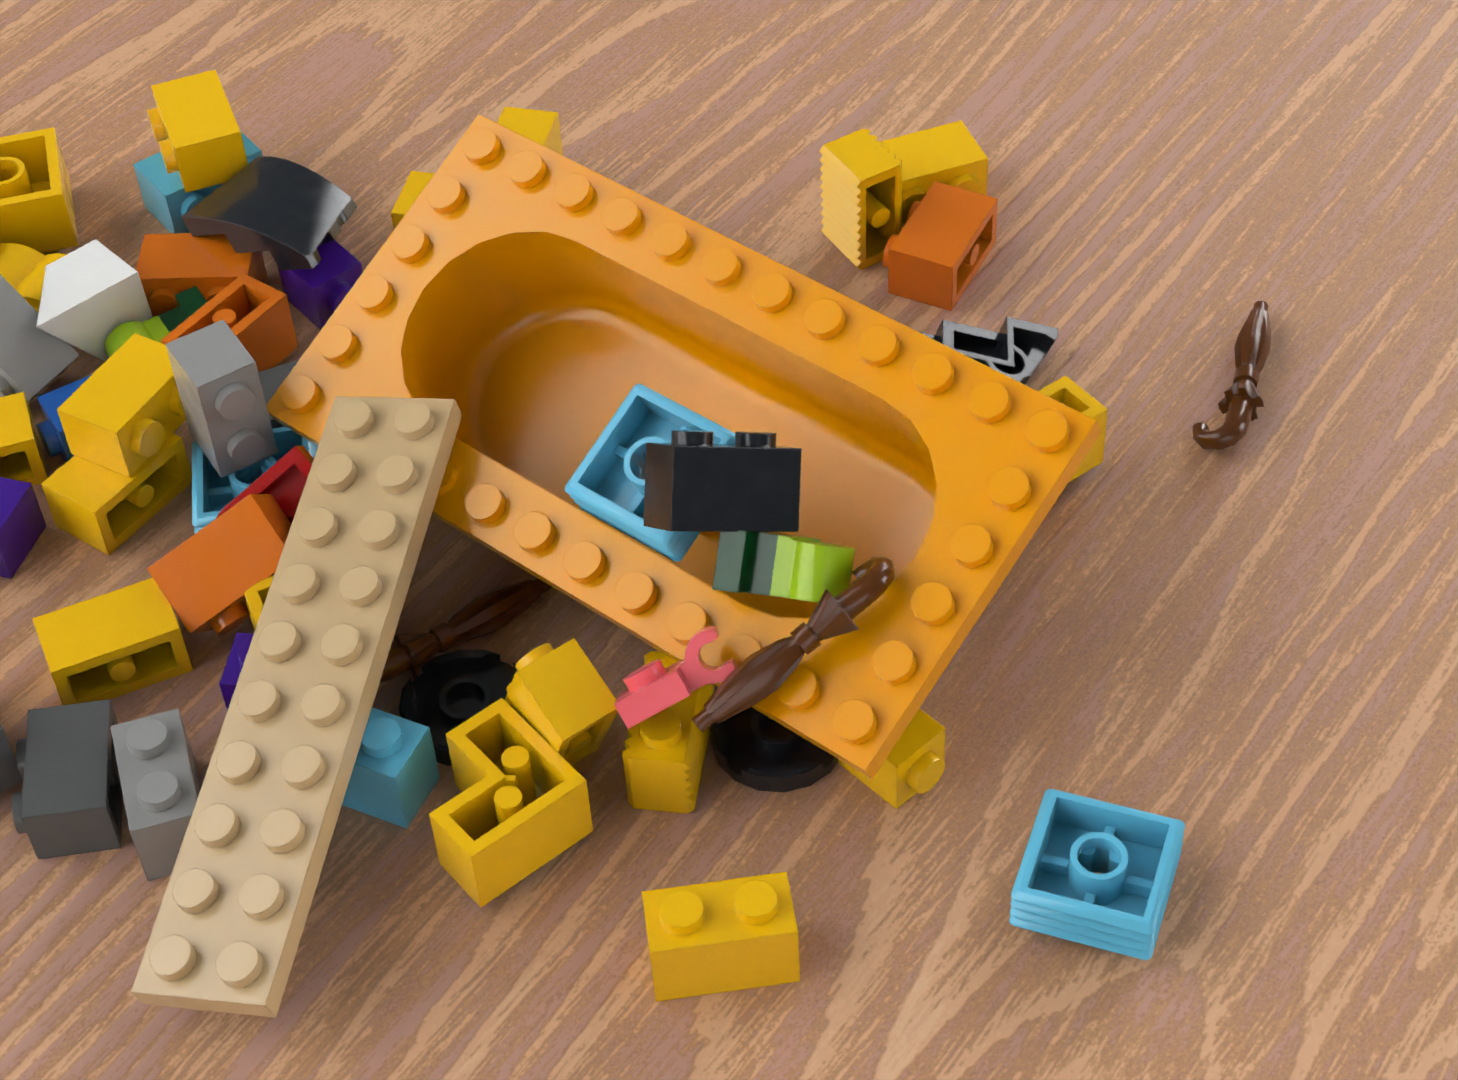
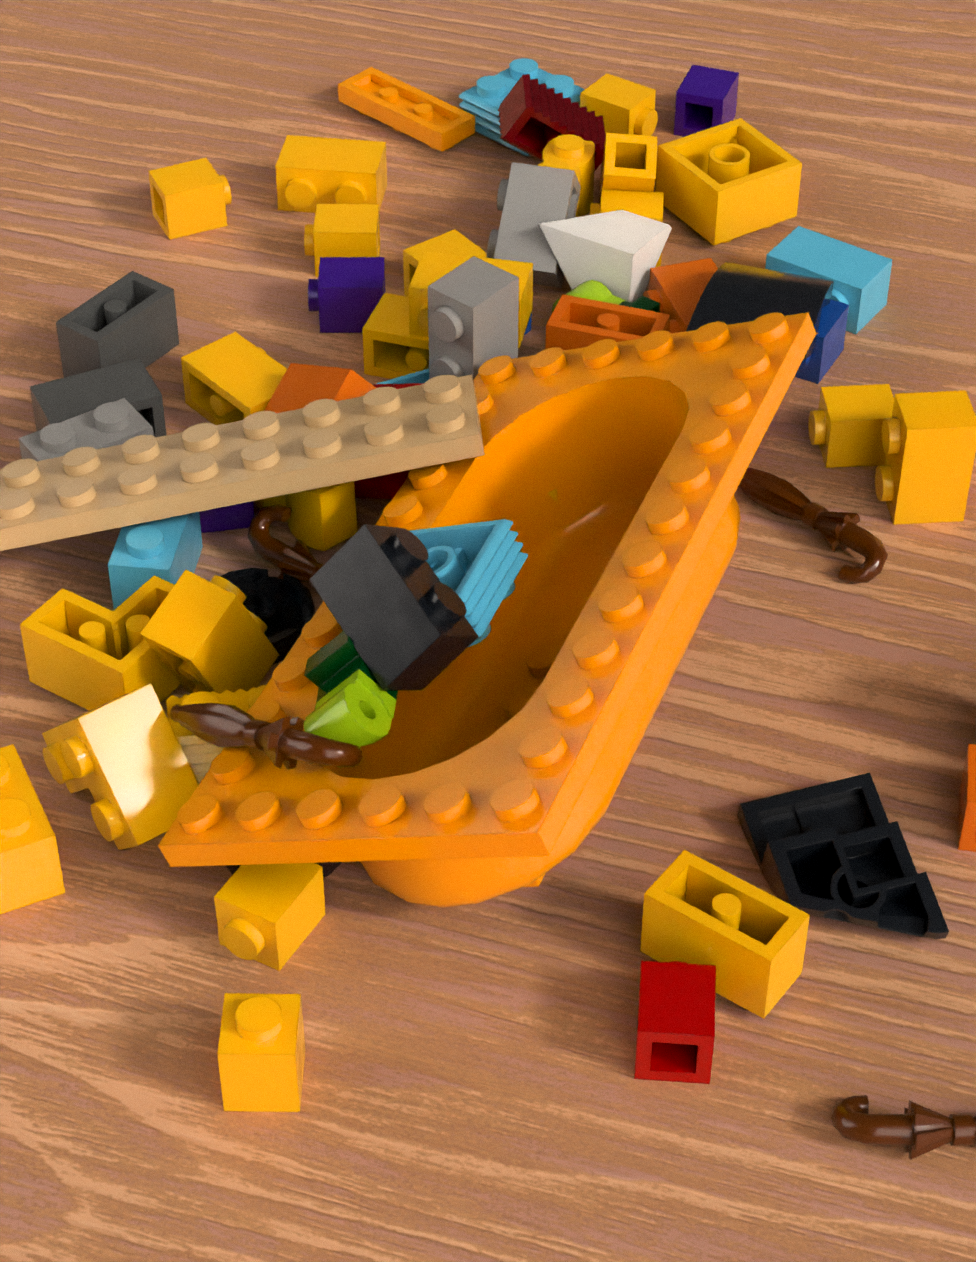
camera: 70 degrees right, 5 degrees down
(197, 130) = (842, 235): yellow brick -> none
(657, 687) = (213, 672): coral plate -> none
(680, 805) = (127, 762): none -> yellow brick
(1071, 760) = (261, 1052): none -> yellow brick
(1106, 506) = (675, 1022): none -> red brick
(1108, 910) = (137, 1098): medium azure brick -> none

